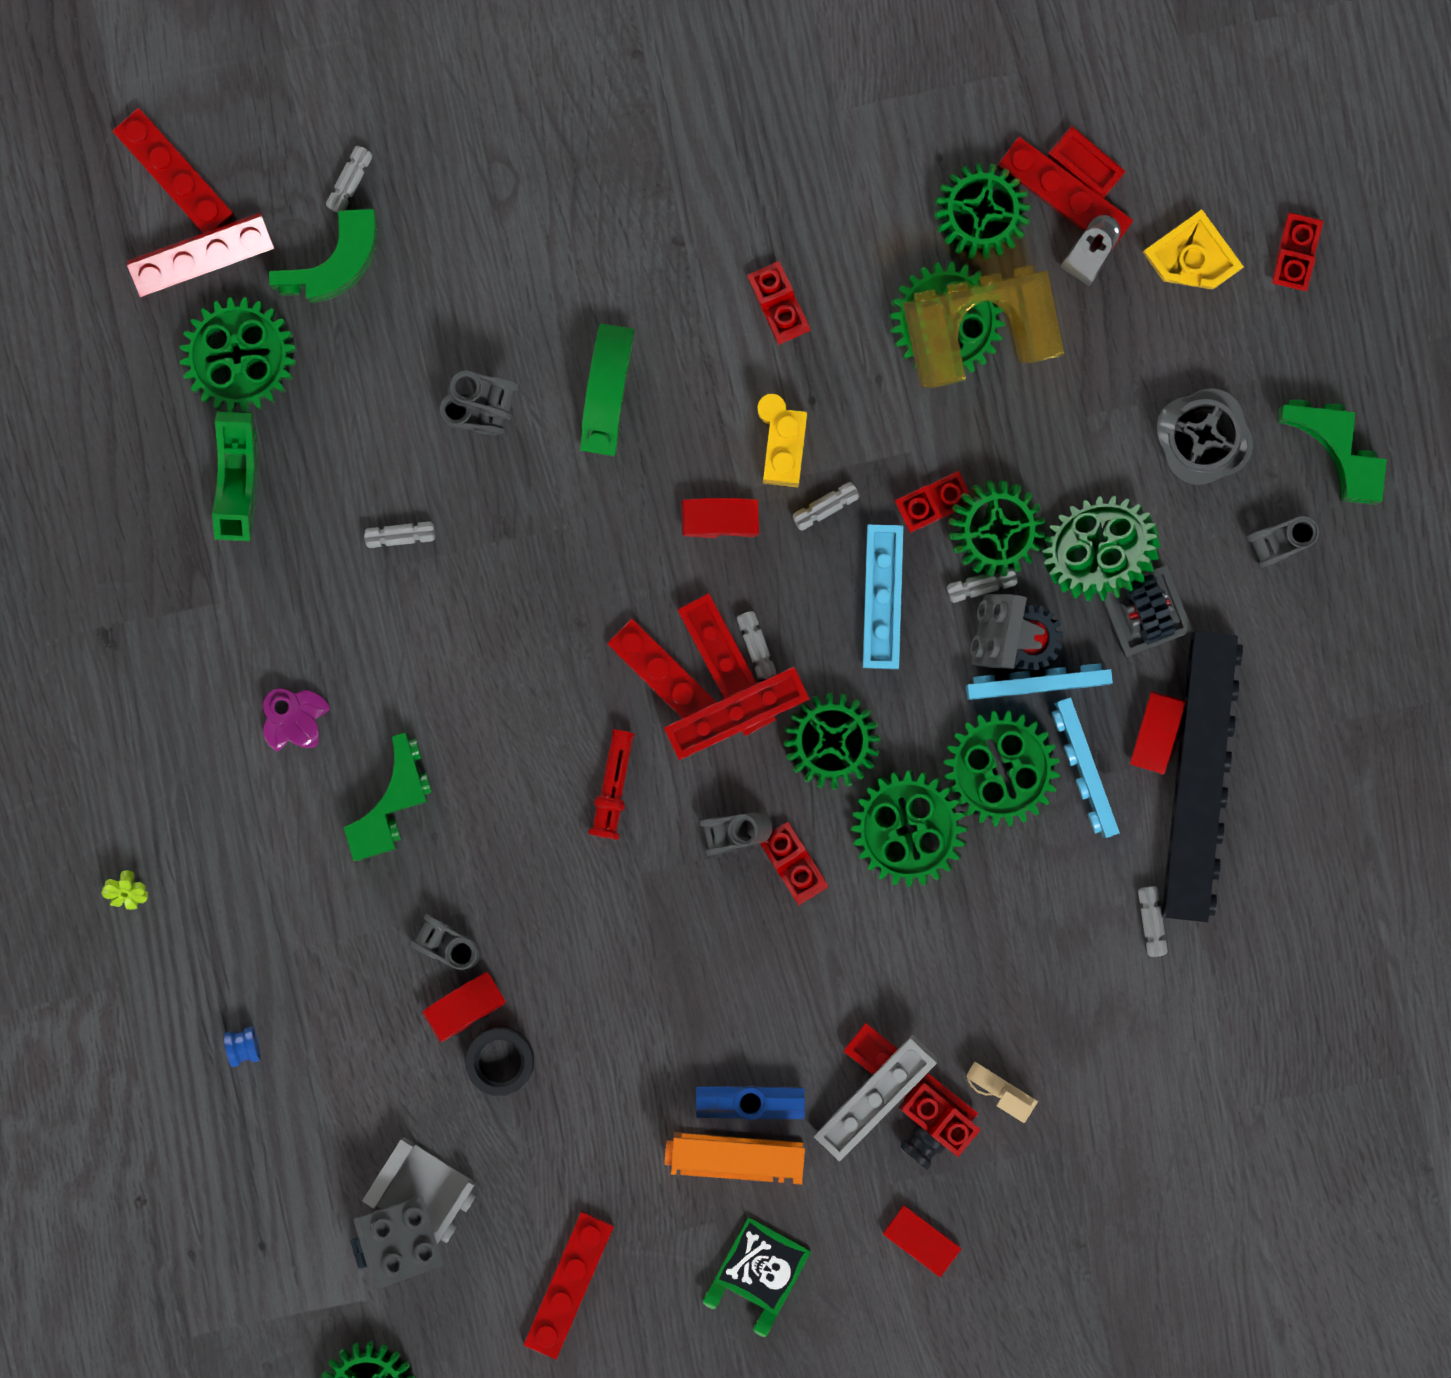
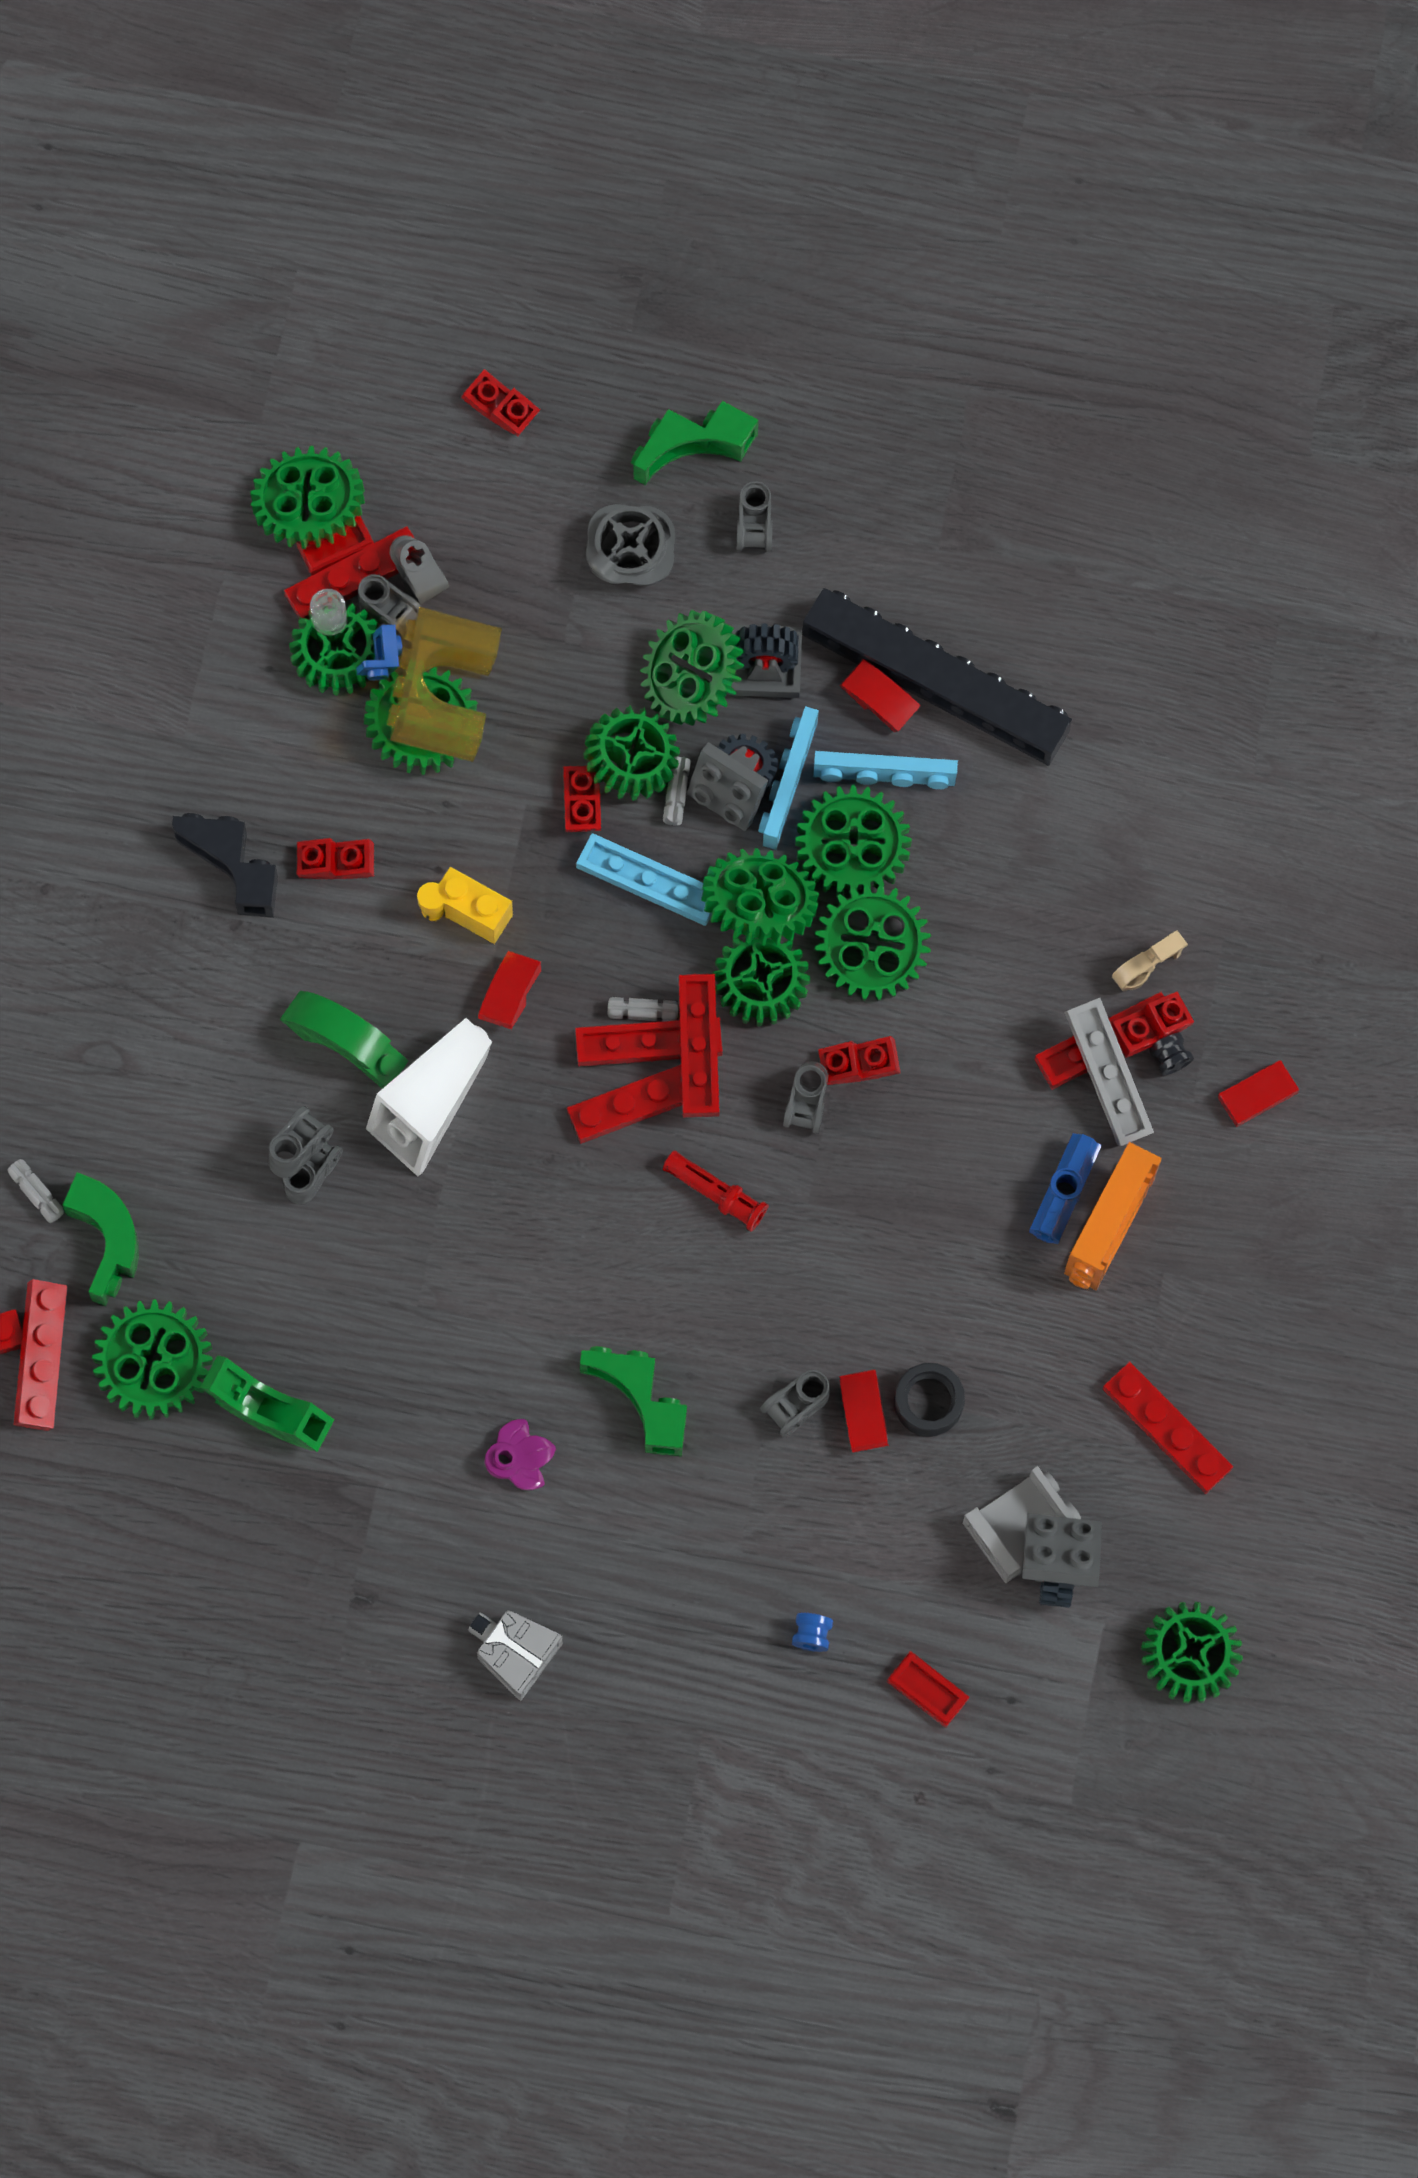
camera: 70 degrees left, 15 degrees down
(114, 791) = (515, 1649): none -> light grey torso
(125, 891) = (614, 1680): lime plant -> none
(238, 1169) = (928, 1689): none -> red tile
(399, 534) = (391, 1285): light grey axle -> none
(582, 489) = (423, 1099): none -> white slope
(744, 199) = (223, 845): none -> black arch
(761, 1269) = (1225, 1248): flag -> none
(825, 506) = (541, 895): light grey axle -> none
(924, 732) = (759, 896): none -> green gear
(993, 259) = (387, 650): none -> blue bracket
(1001, 194) = (329, 620): none -> clear wheel
(1044, 242) = (392, 608): none -> dark grey piece
(1132, 144) = (277, 495): none -> green gear
(1152, 921) = (1050, 772): light grey axle -> none
(1193, 255) = (462, 488): yellow plate -> none

